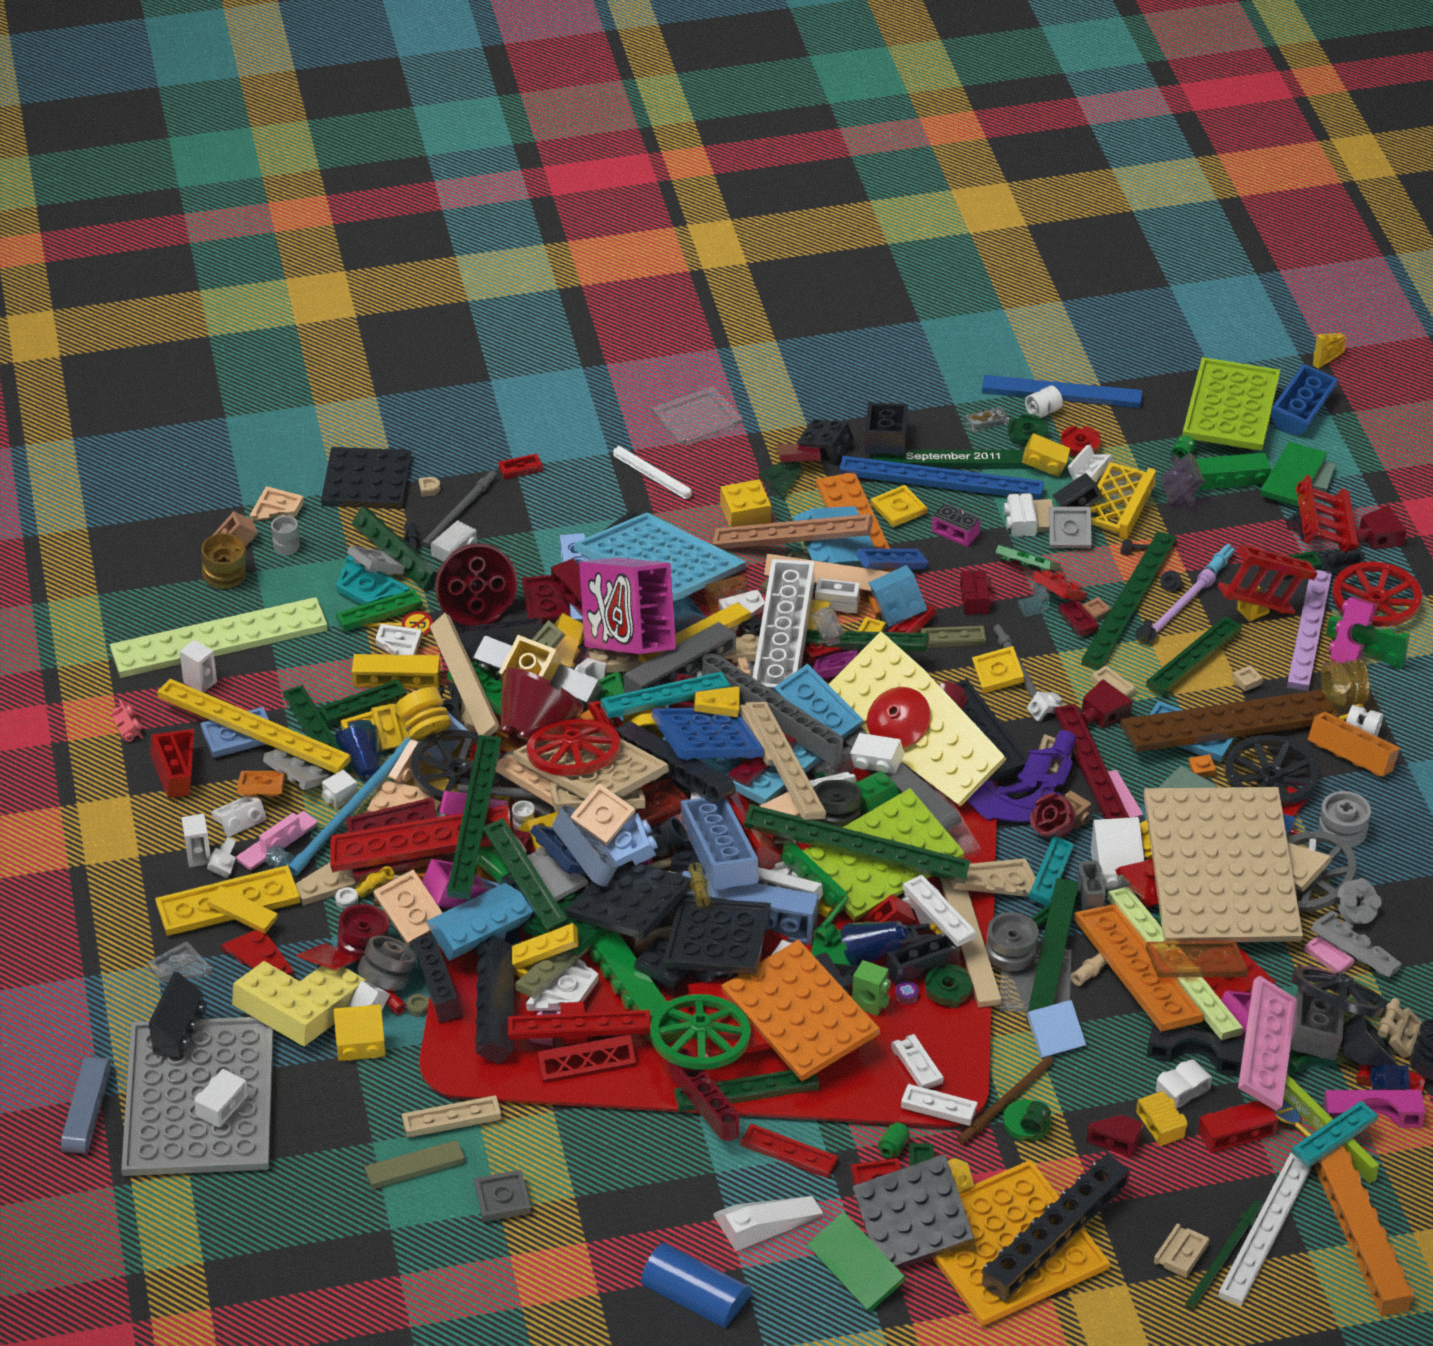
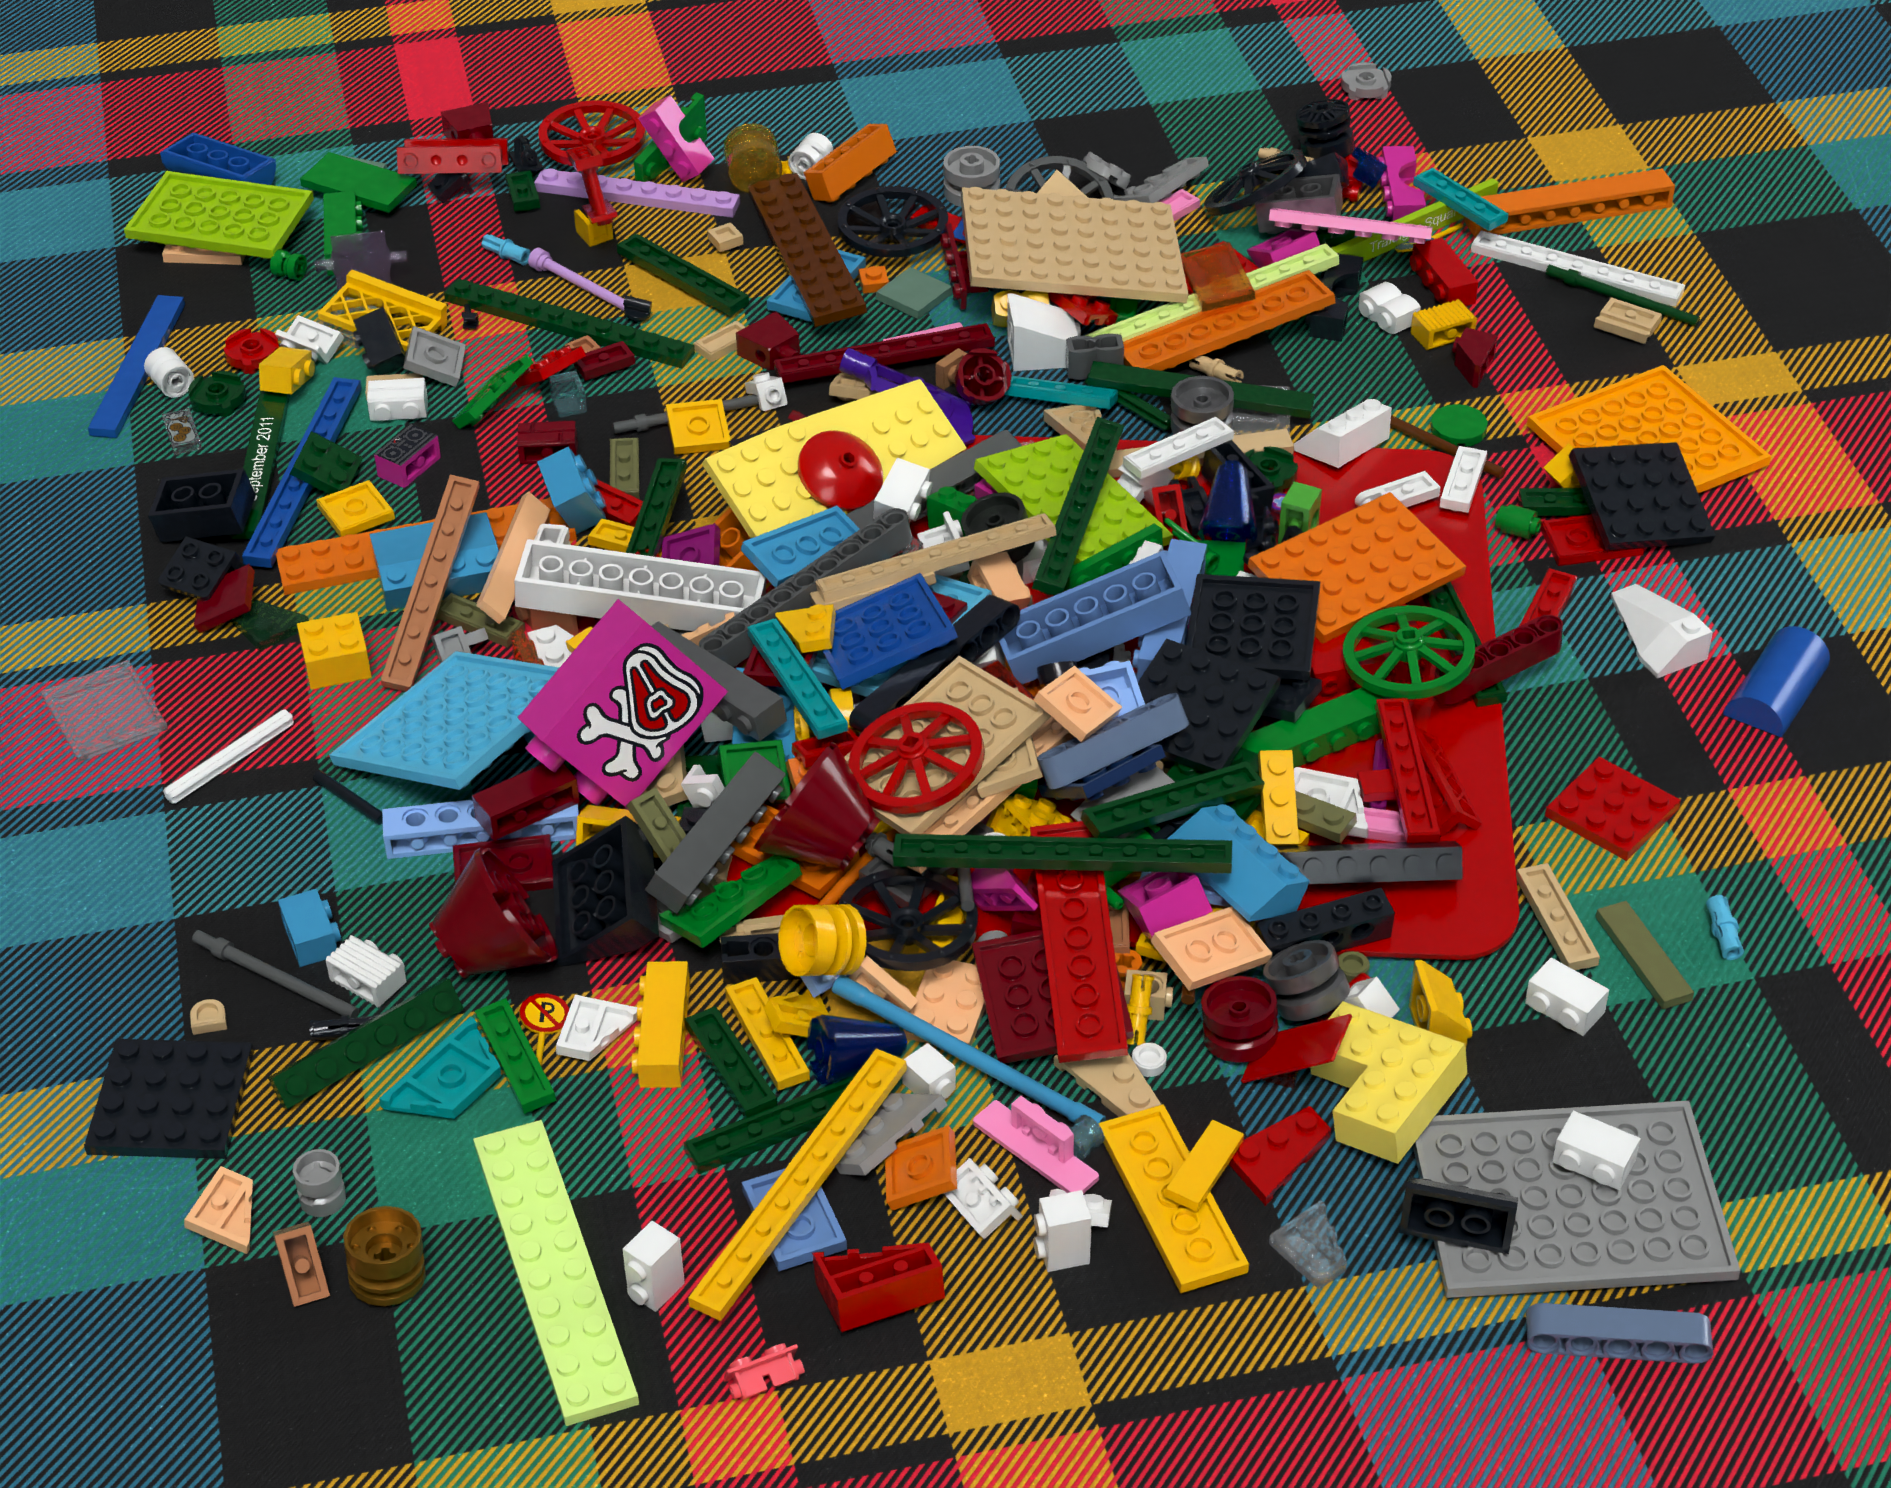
camera: 90 degrees left, 0 degrees up
(372, 1111) = (1567, 996): none -> white brick
(375, 560) = (407, 1054): light grey plate -> none
(432, 1211) = (1724, 927): none -> medium azure pin
(464, 676) = (726, 906): tan tile -> none
(492, 516) = (309, 926): none -> dark azure brick
(502, 1195) = (1682, 860): dark grey plate -> none
(520, 466) = (184, 924): red tile -> none
(532, 658) = (736, 811): yellow brick -> none
(565, 1166) = (1612, 808): none -> red plate
(699, 885) = (1176, 632): clear yellow pin -> none
(754, 561) = (455, 640): none -> light grey plate
(828, 625) = (641, 542): clear hips -> none
(856, 1262) = (1712, 549): green tile -> none
(891, 558) = (498, 501): blue plate -> none
(940, 484) = (325, 464): none -> dark green plate
(993, 1036) = (1348, 434): none -> white slope
(1036, 1117) = (1472, 405): dark green wheel -> none
(1055, 1227) = (1637, 390): black brick -> none
(1056, 1029) = (1324, 389): light blue tile -> none
(1171, 581) = (540, 286): black plate -> none
(1328, 347) = (121, 142): yellow wing -> none

